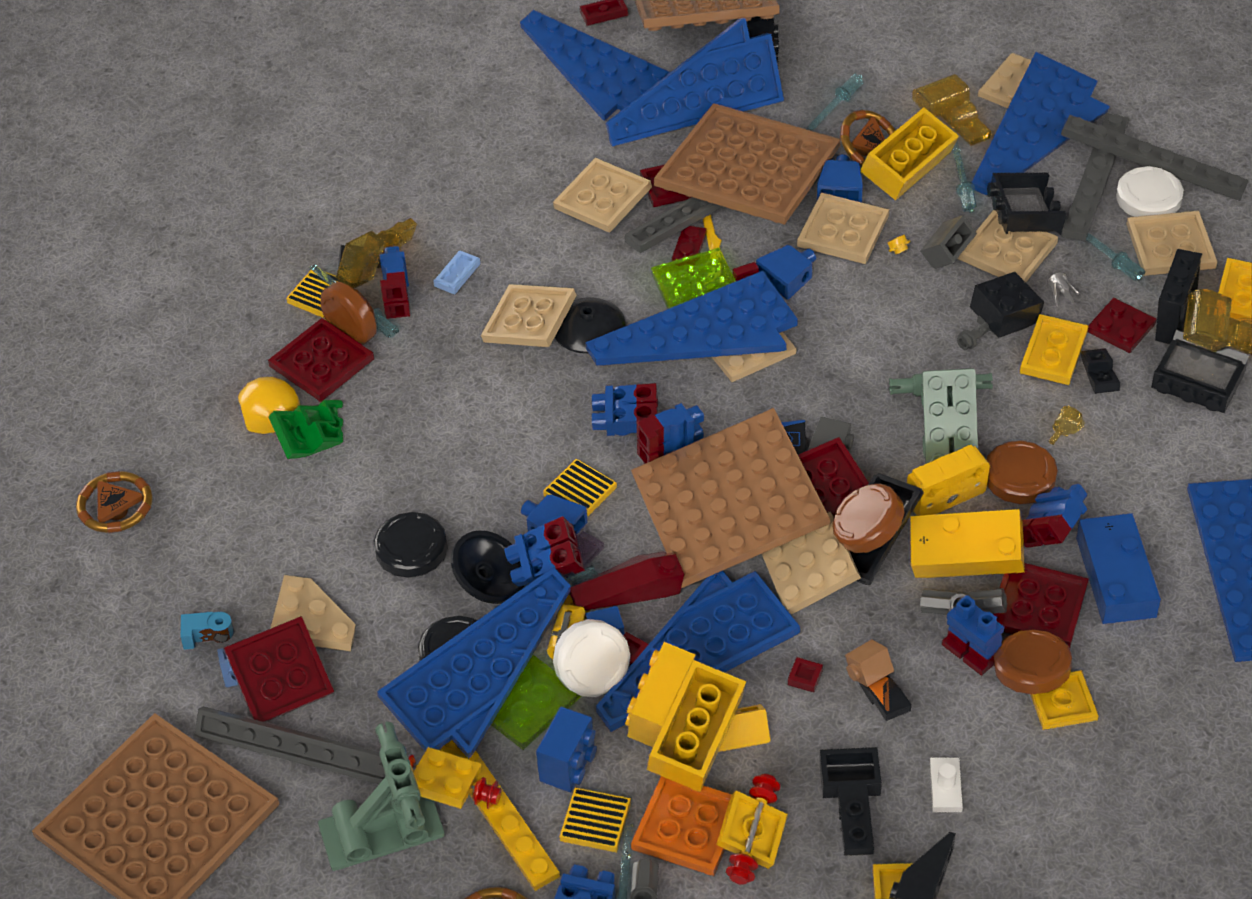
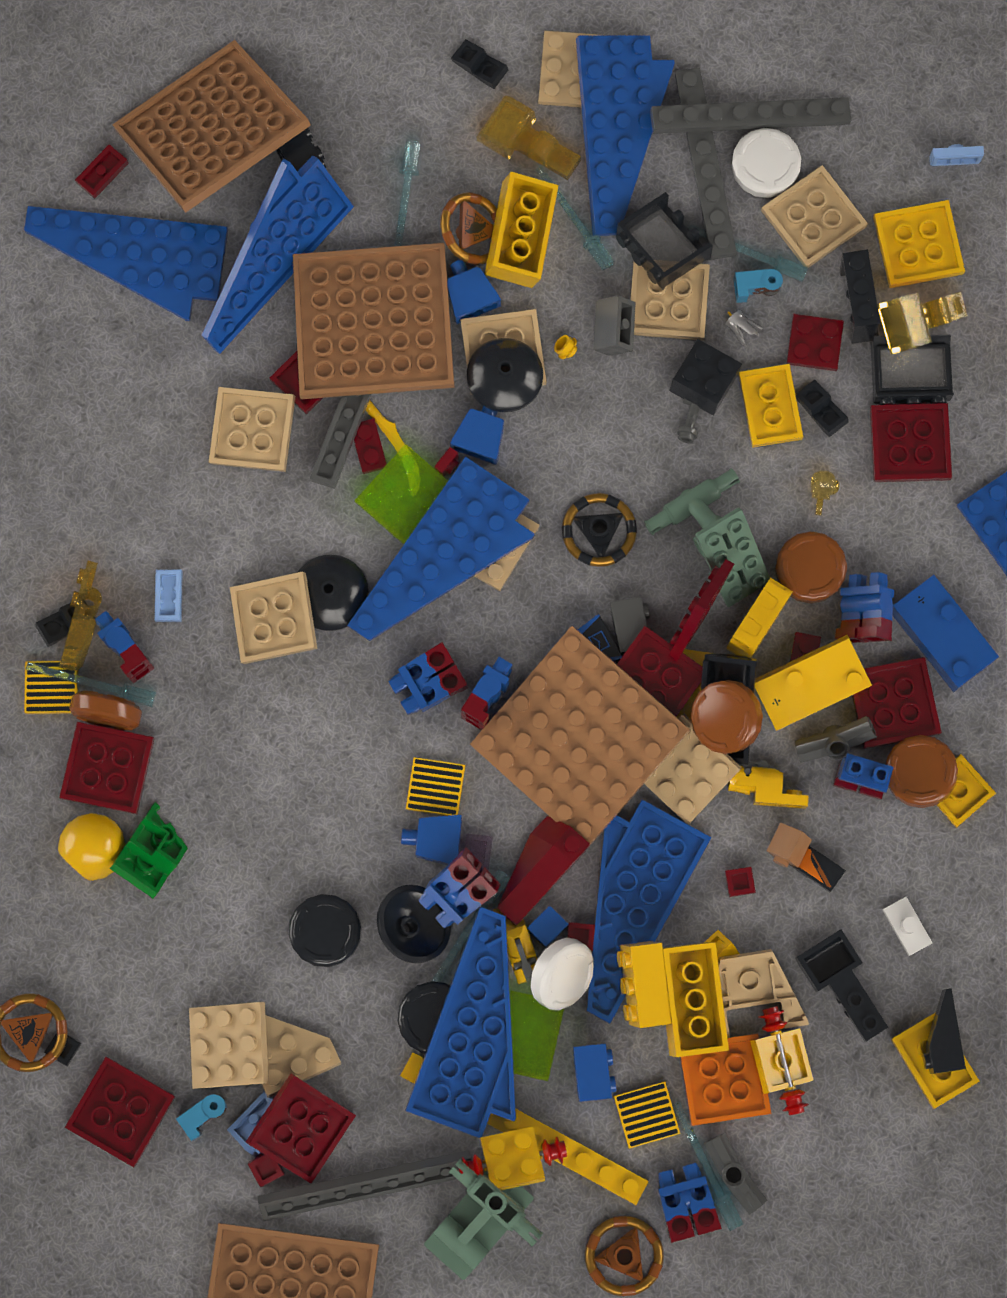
camera: 30 degrees left, 30 degrees up
(135, 534) = (69, 1050): none -> black tile
(141, 595) = (120, 1112): none -> dark red plate
(226, 694) = (265, 1169): none -> dark red plate
(266, 584) = (228, 1045): none -> tan plate
(760, 748) = (758, 980): none -> tan wing
(833, 237) = (500, 389): none -> black dish
(846, 374) = (599, 529): none -> black piece
(876, 613) = (766, 785): none -> yellow plate
(896, 437) = (700, 608): none -> dark red plate
(944, 54) = (479, 64): none -> black slope
(1093, 265) = (756, 282): none -> dark azure leg
(1168, 423) = (910, 442): none -> dark red plate

